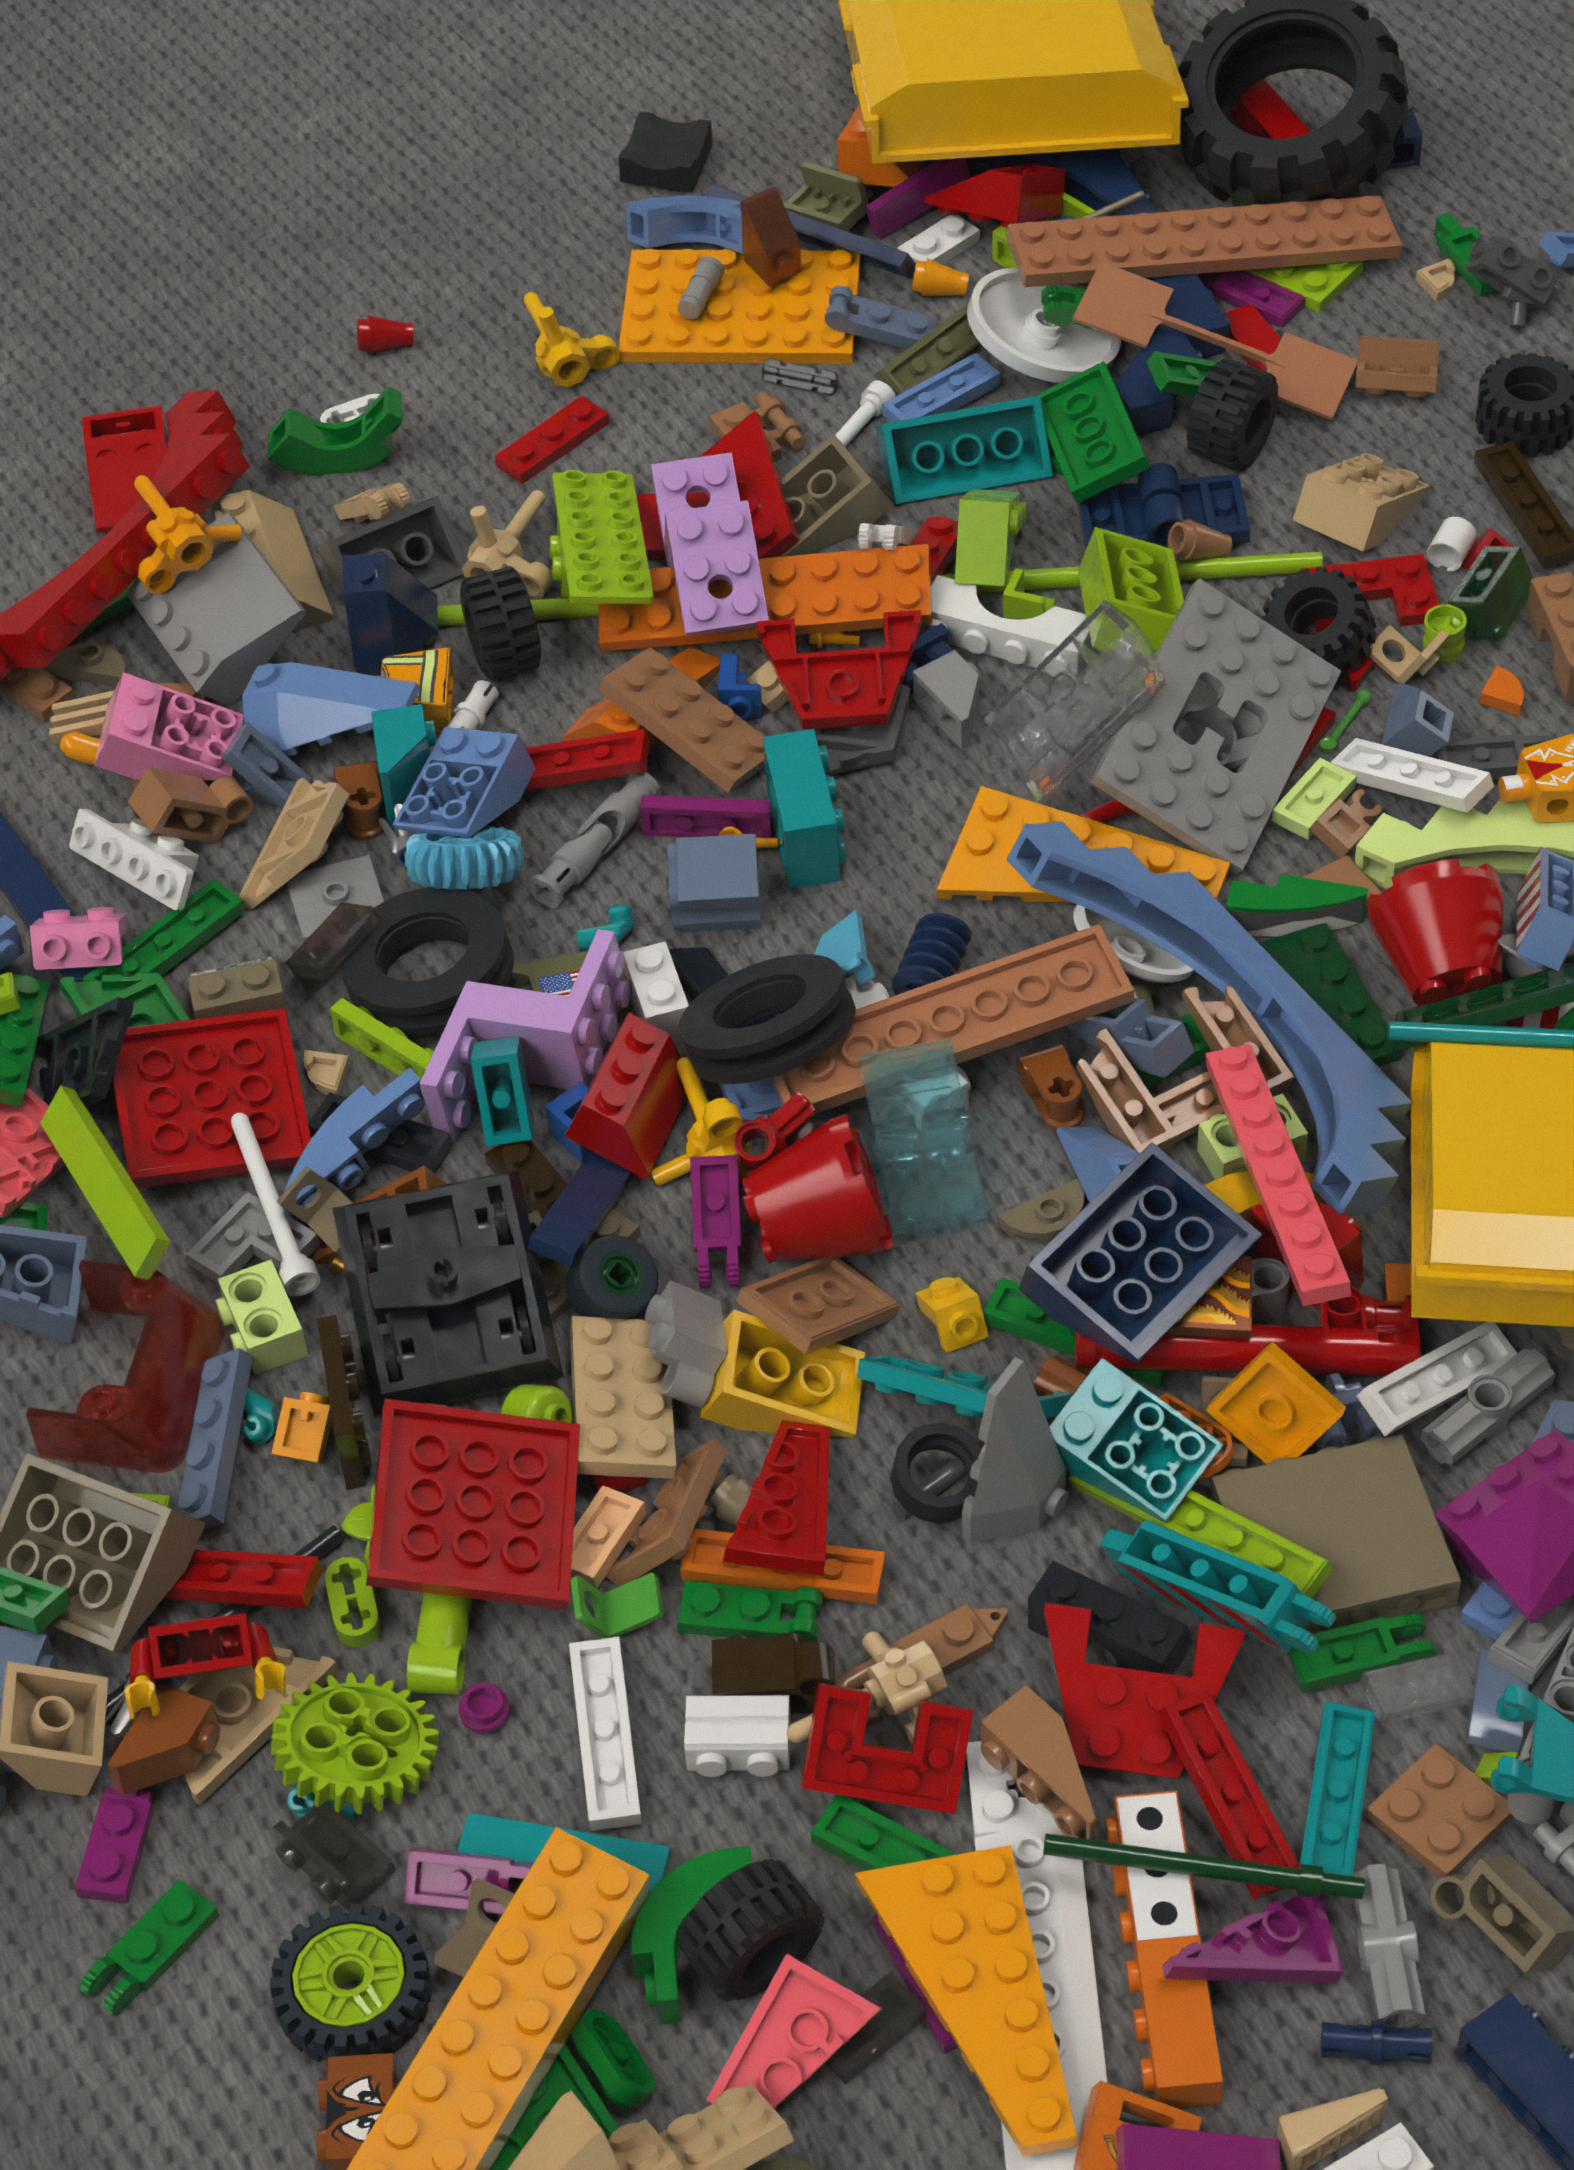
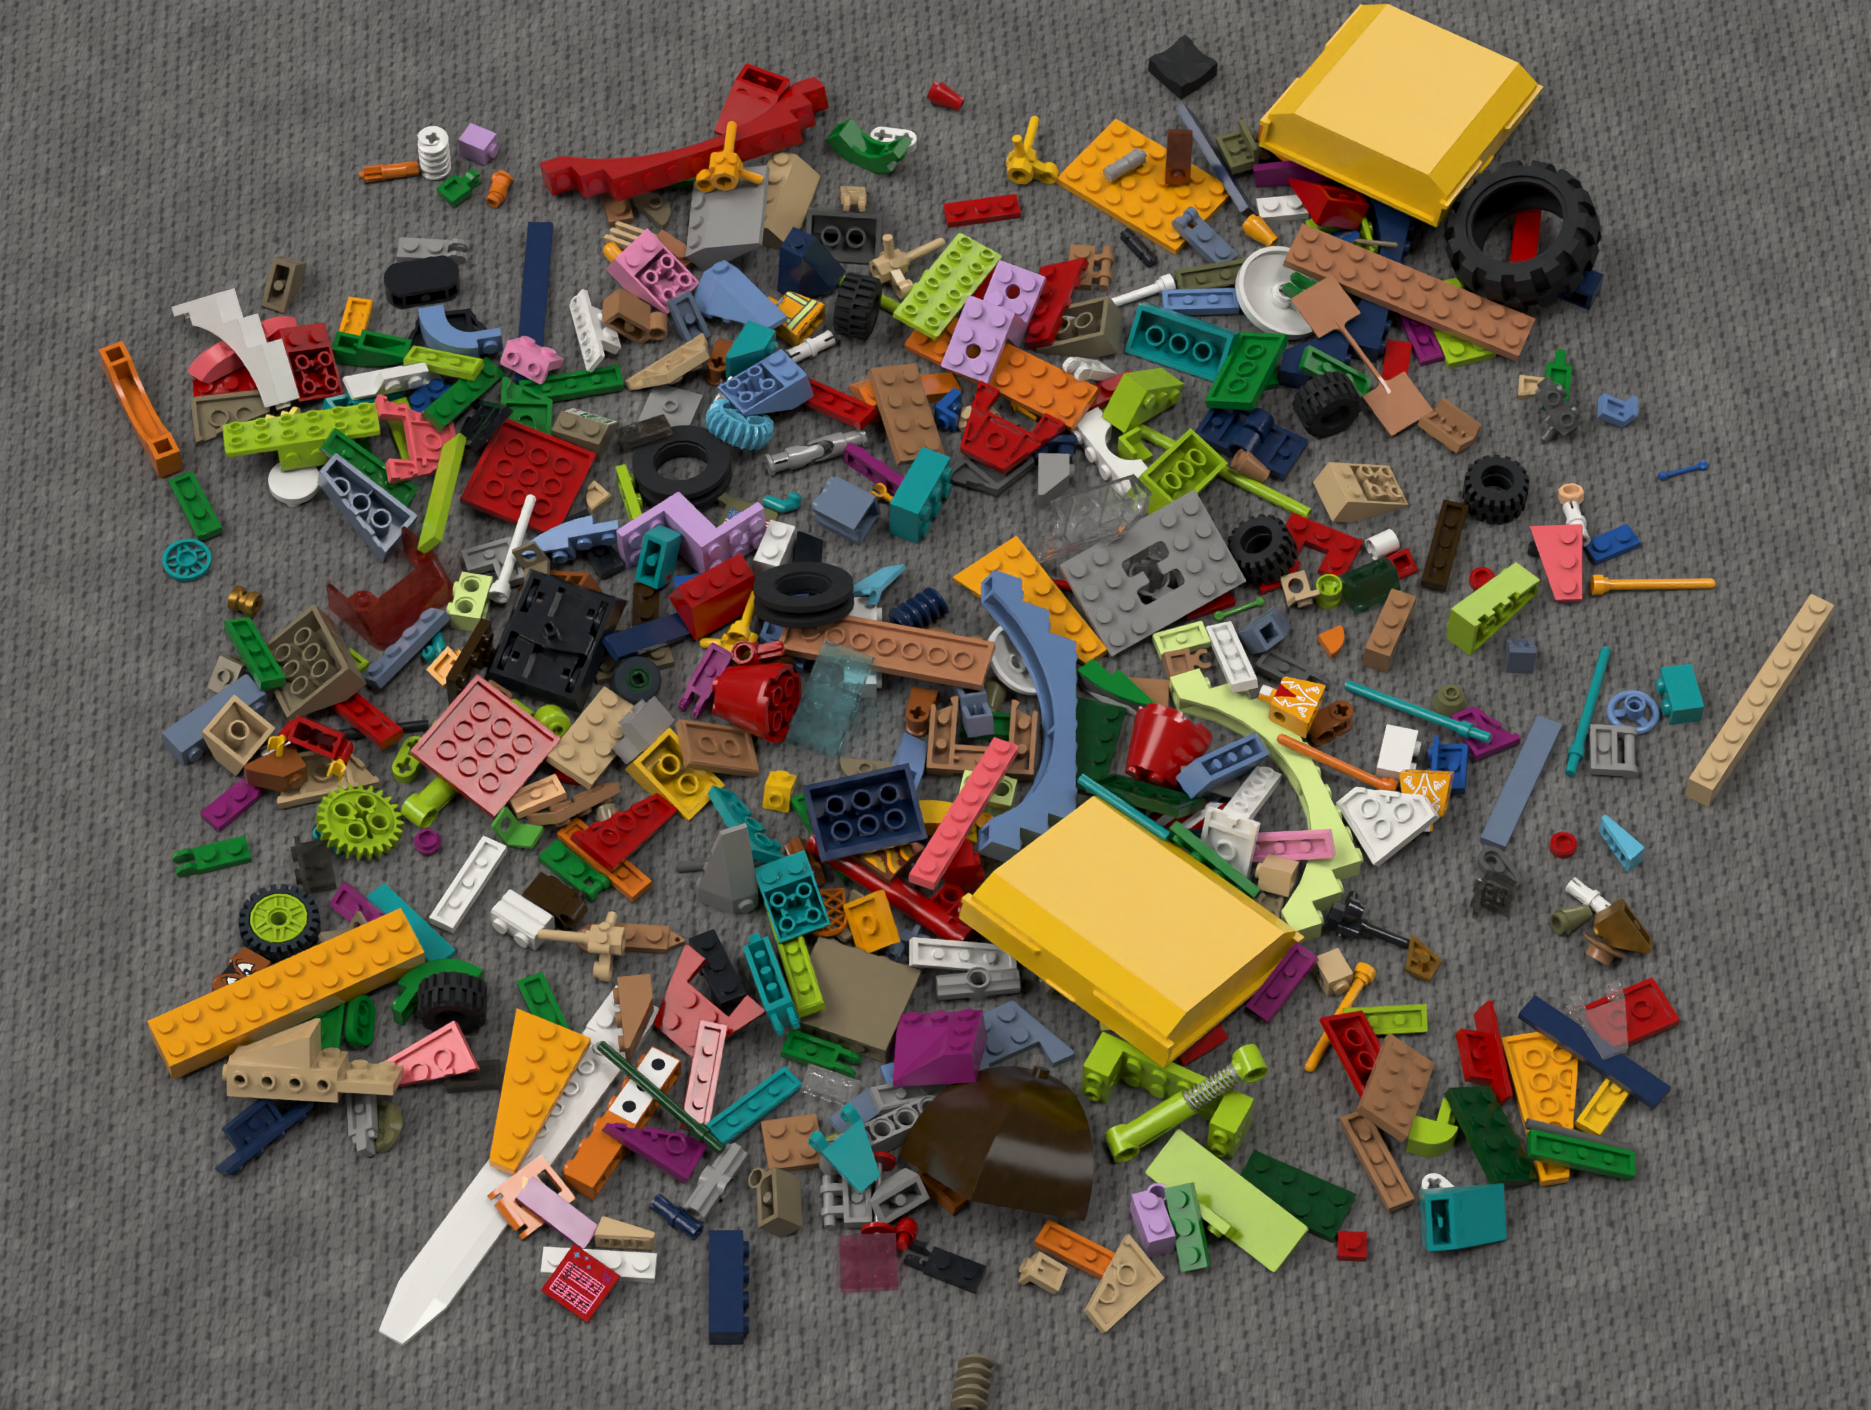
camera: 30 degrees right, 5 degrees up
(685, 219) = (1151, 114): medium blue arch -> none
(916, 1778) = (580, 986): red plate -> none
(925, 1438) = (689, 844): black tyre -> none

